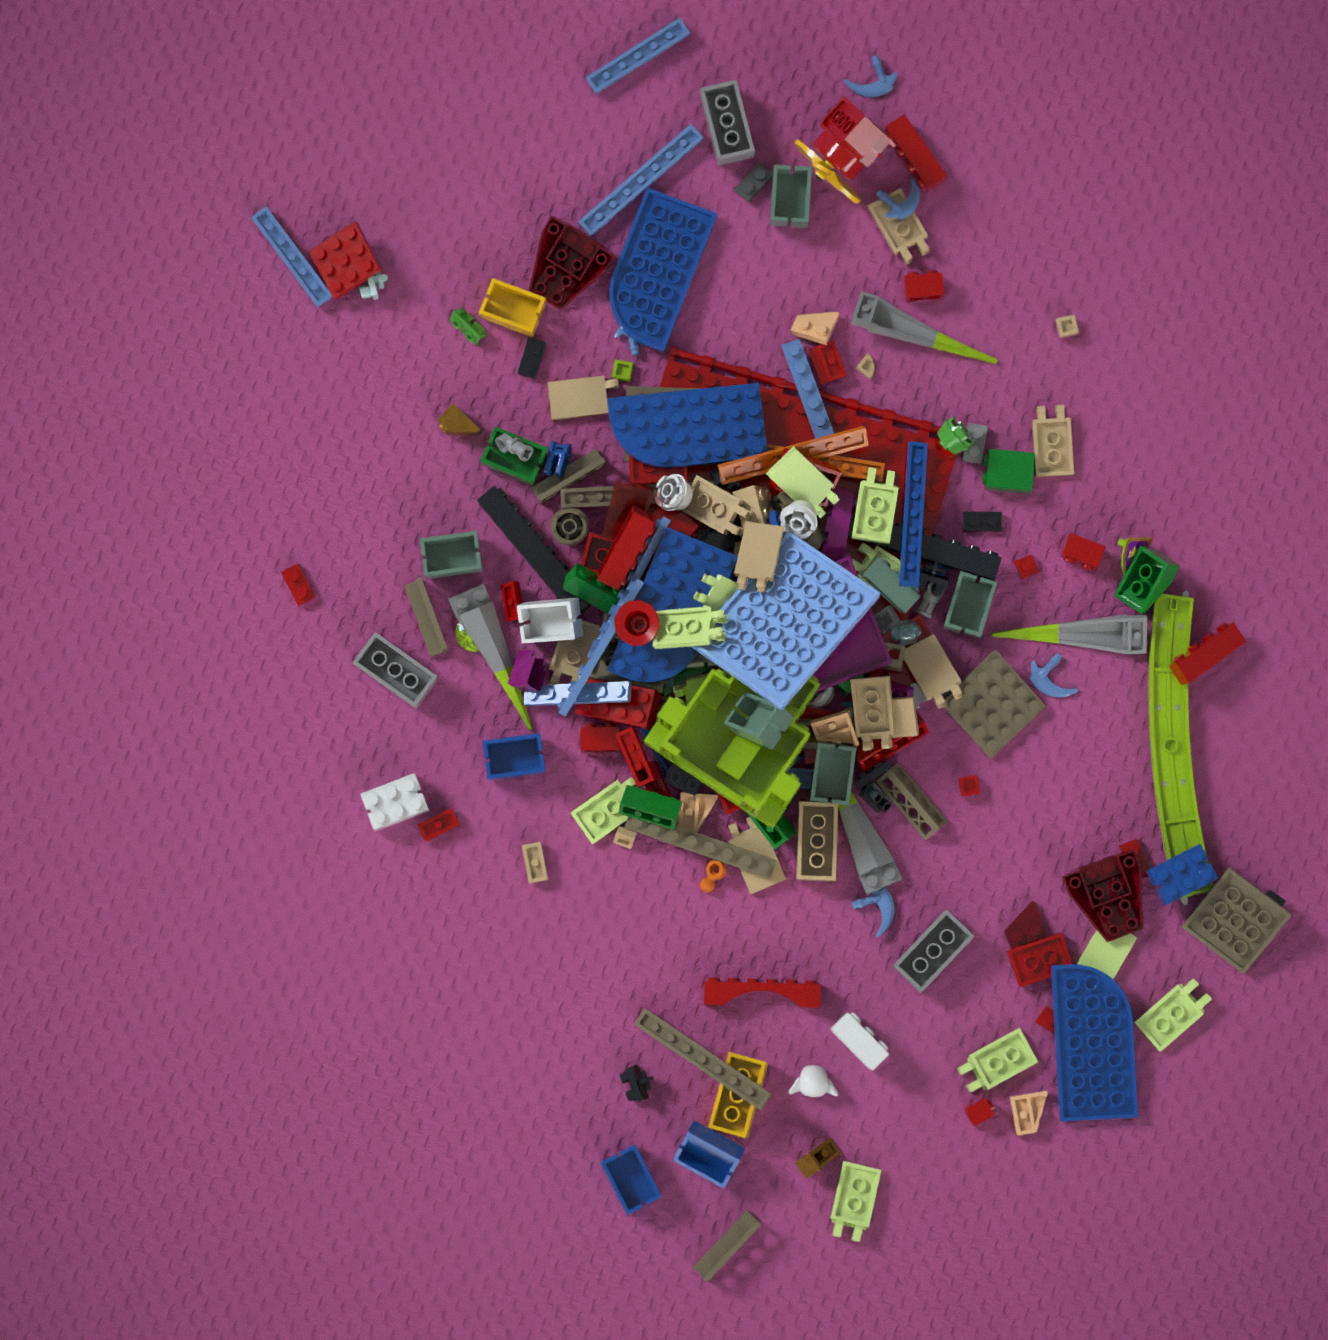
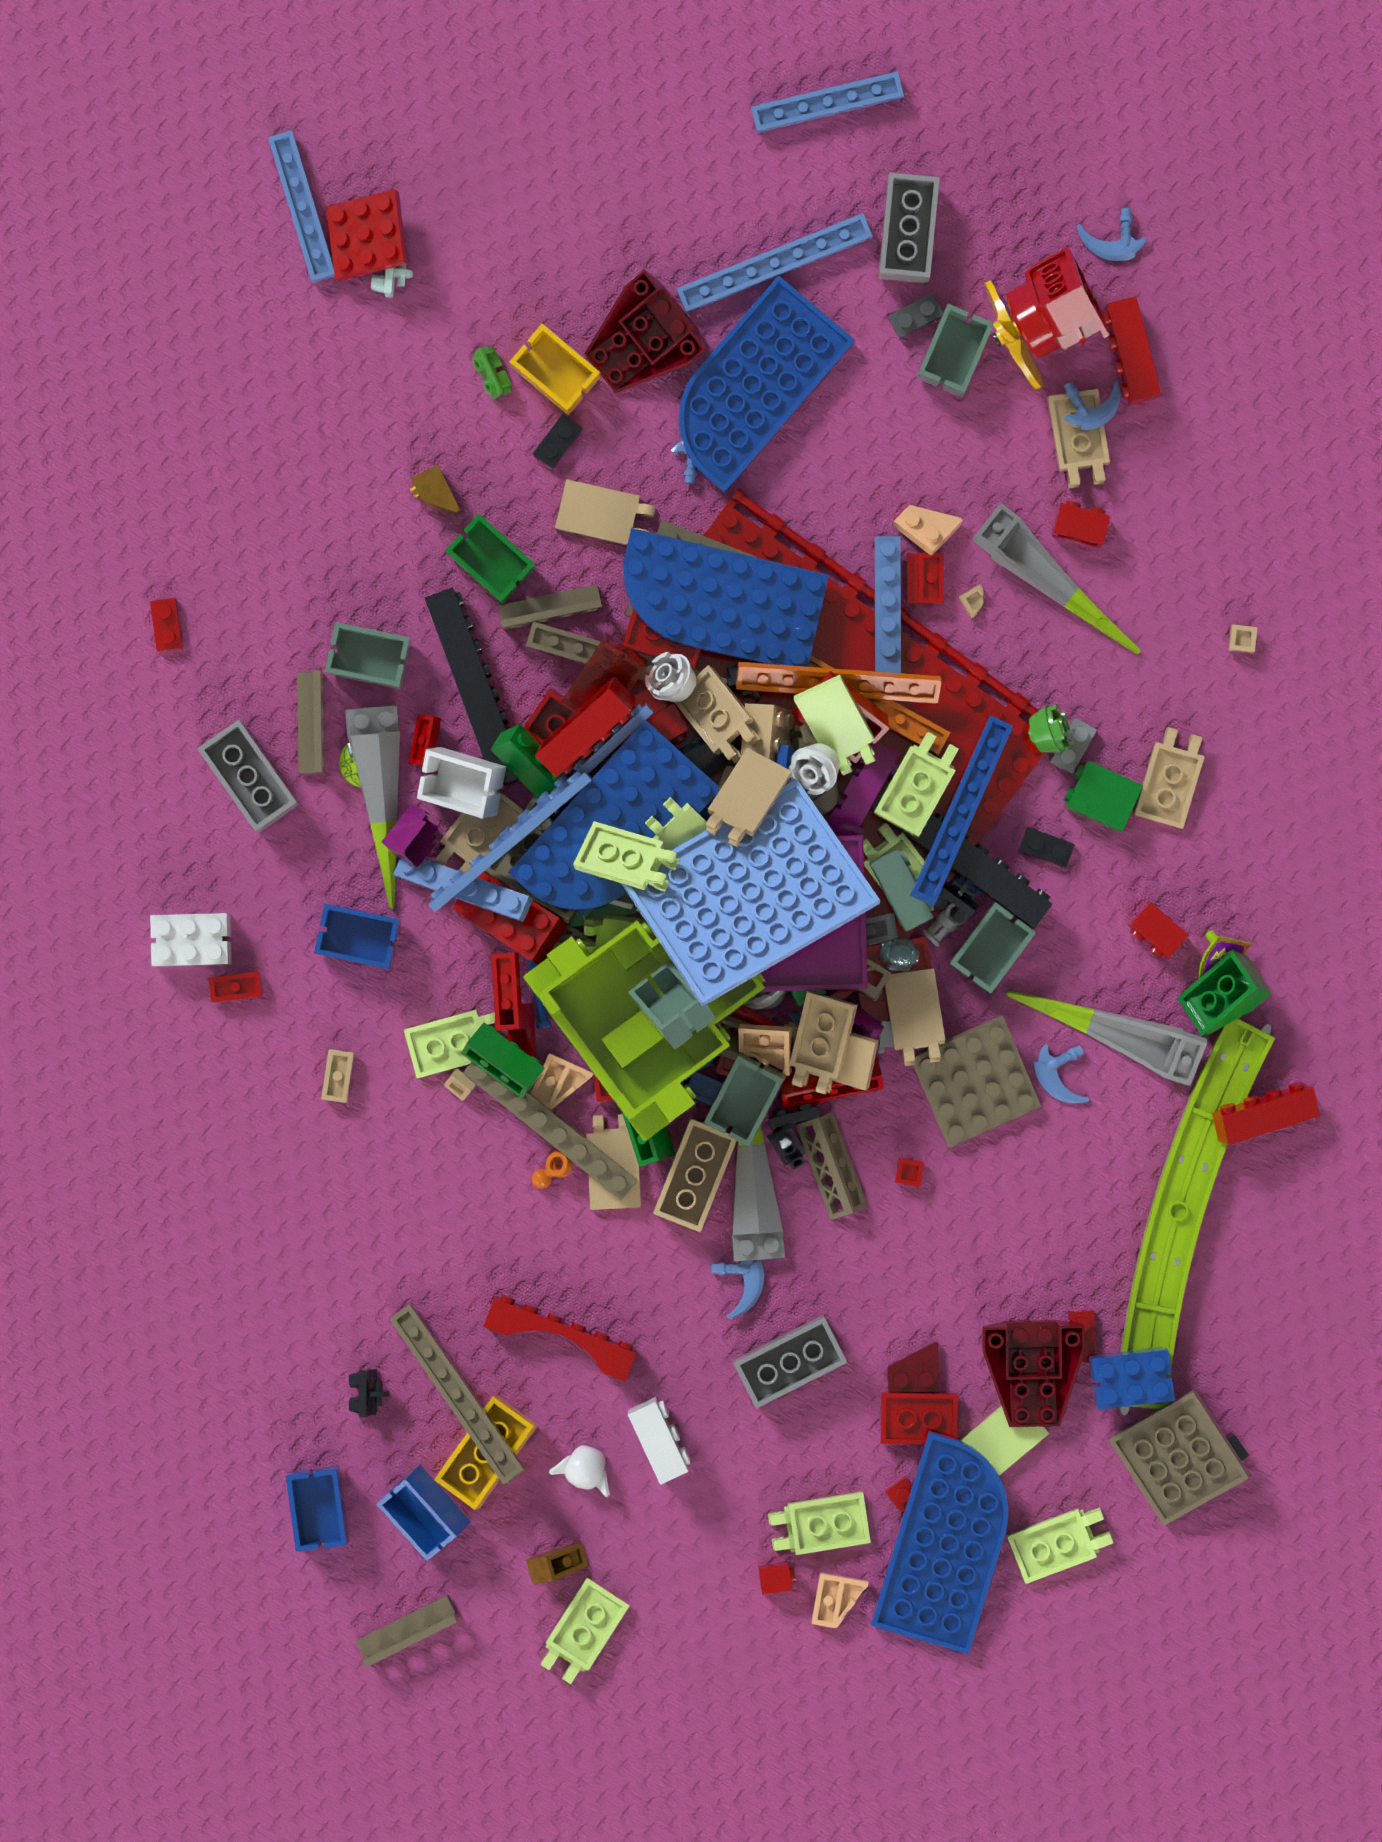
camera: 20 degrees right, 5 degrees up
(514, 446) = (494, 548): light grey connector -> none
(559, 453) = (545, 572): blue piece -> none
(569, 526) = (528, 672): dark tan cone -> none
(599, 738) = (471, 950): red brick -> none
(622, 370) = (665, 497): lime tile -> none
(629, 622) = (556, 822): red hat -> none
(681, 779) = (555, 1040): black hips -> none
(1026, 567) = (1080, 923): red plate -> none

